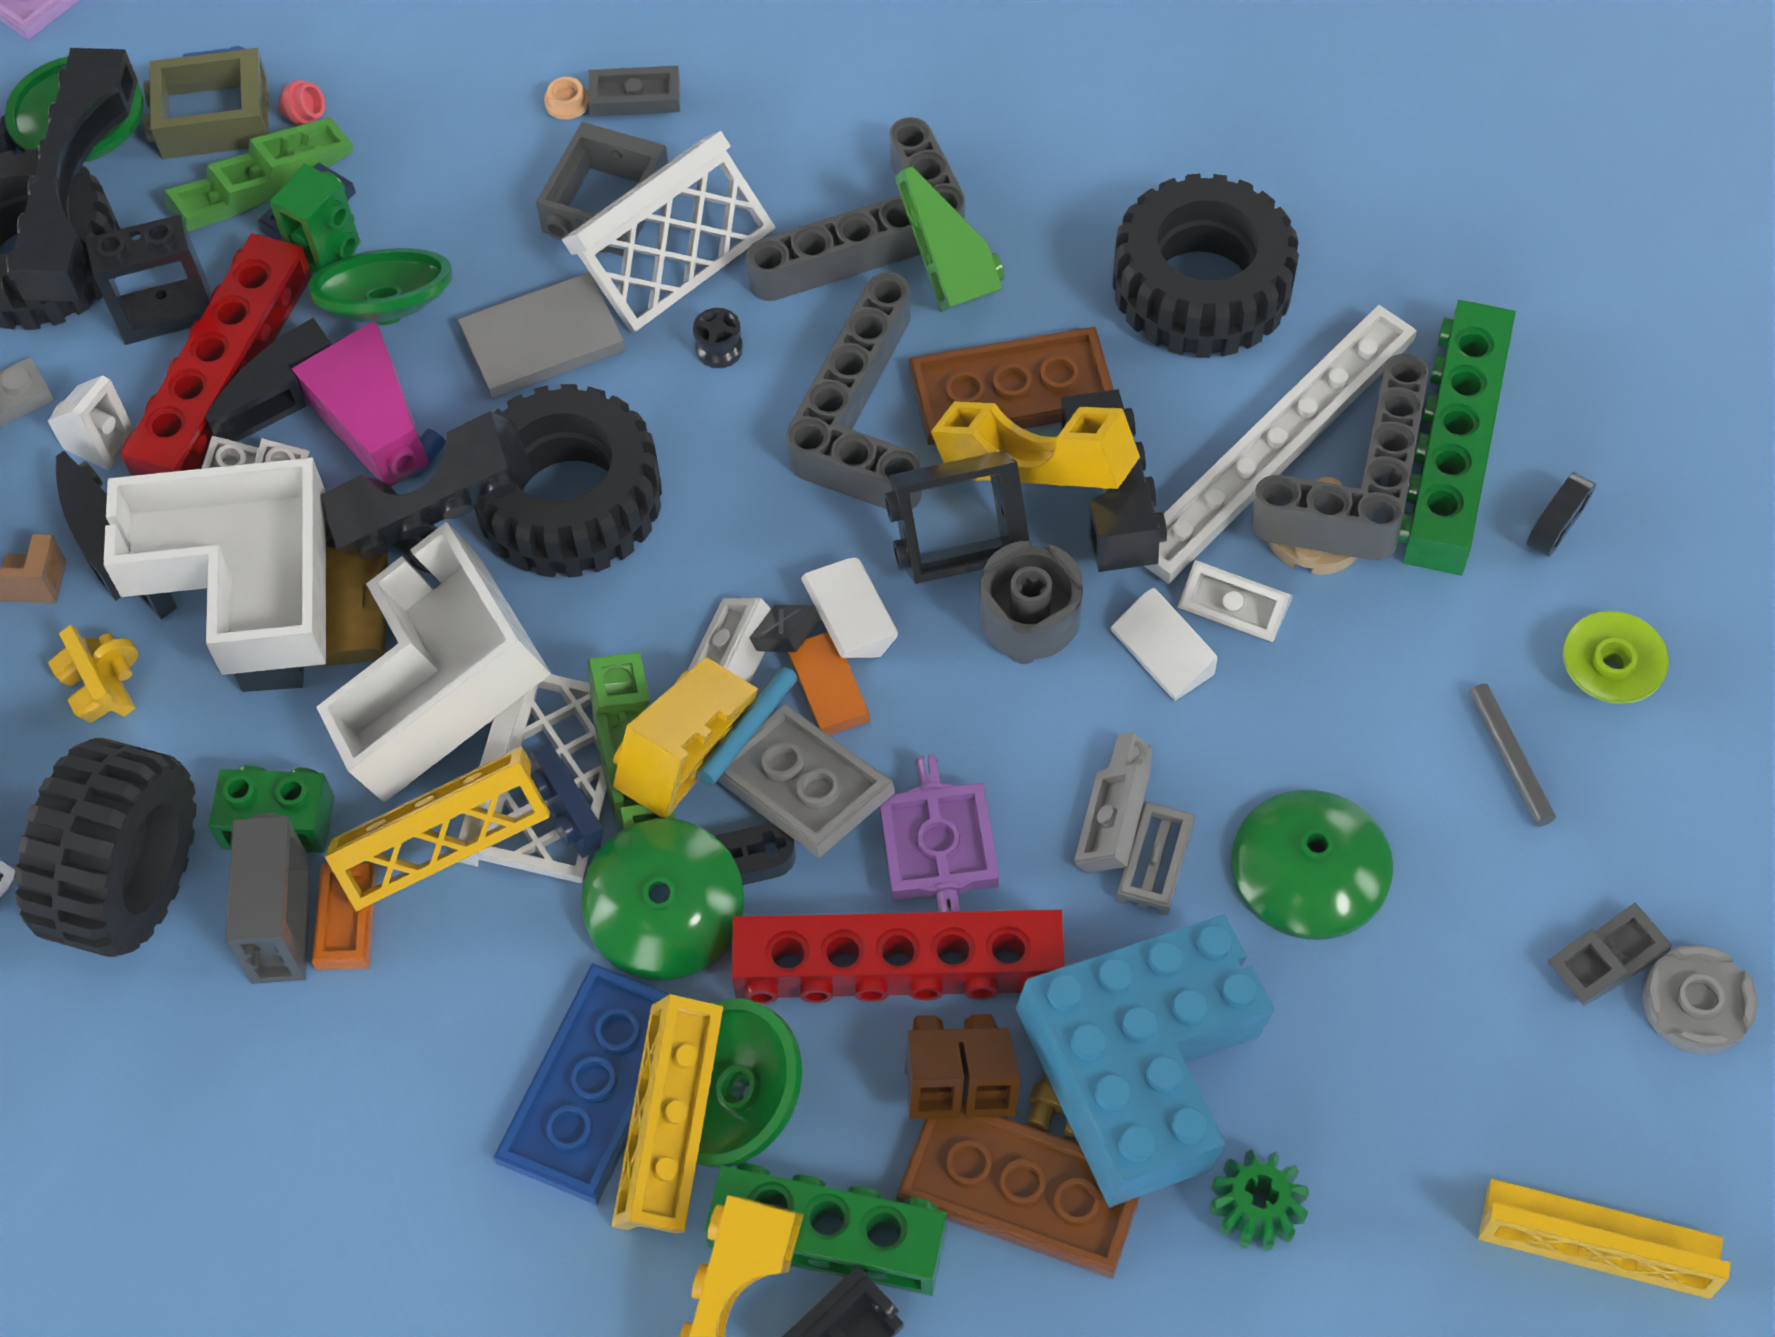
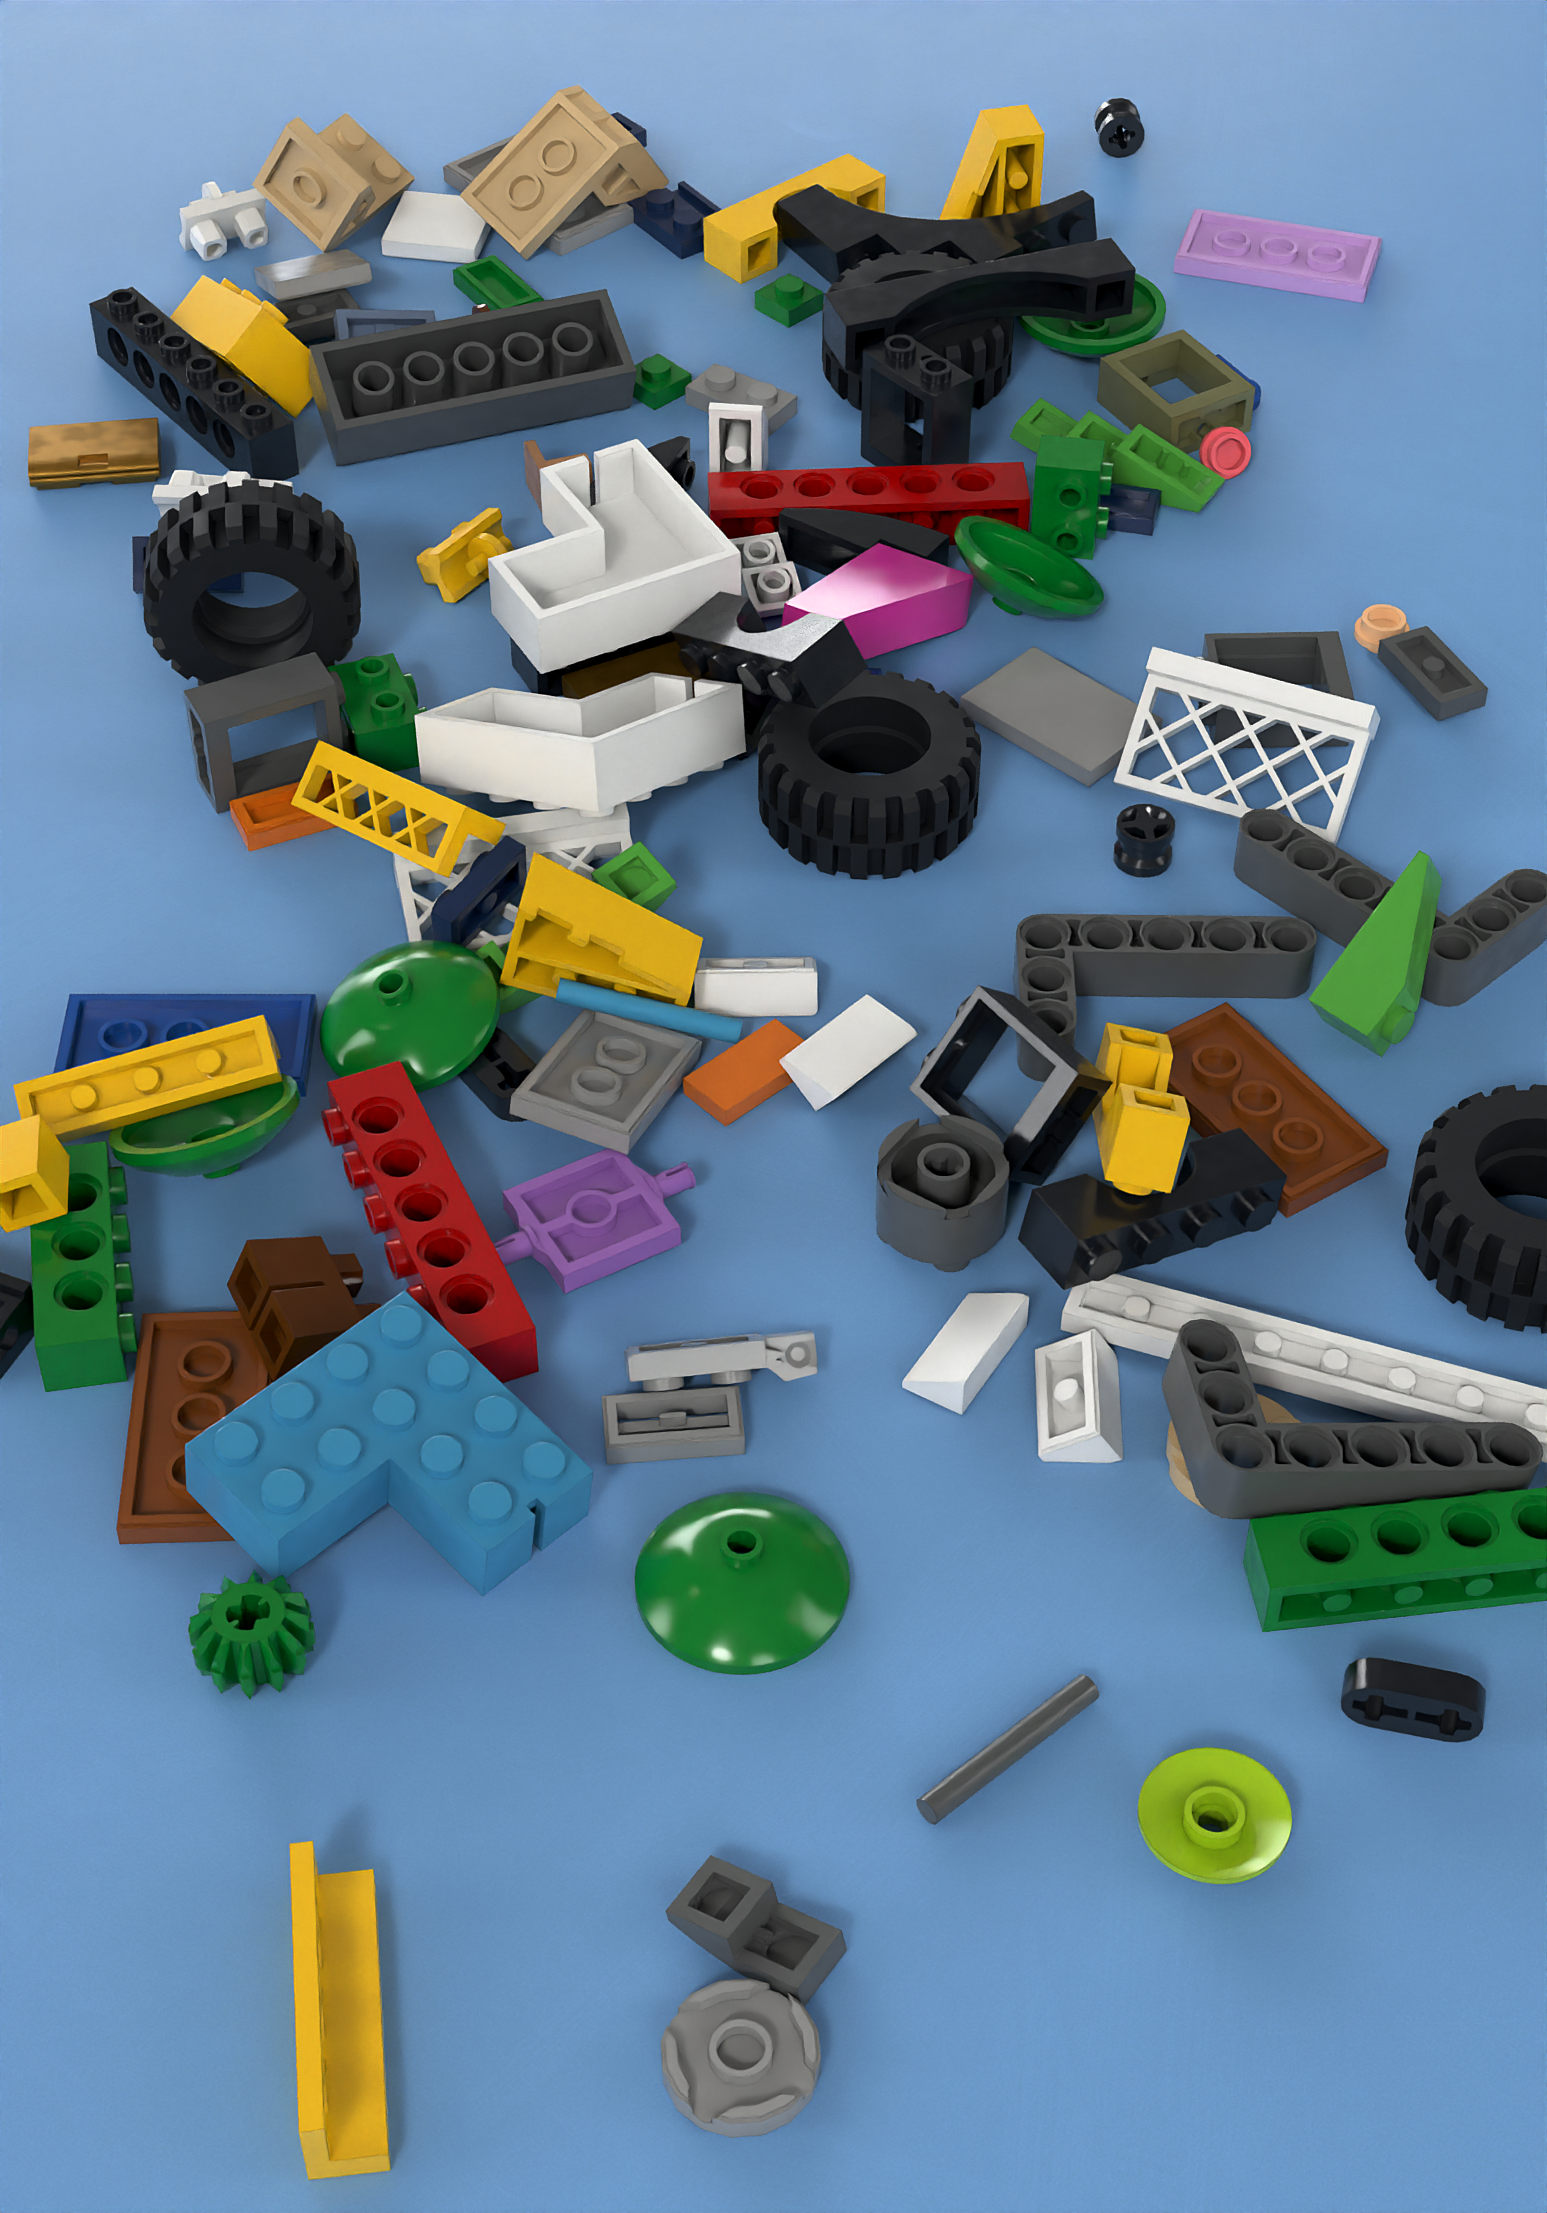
camera: 65 degrees right, 15 degrees down
(785, 628) = (793, 1007): black tile -> none

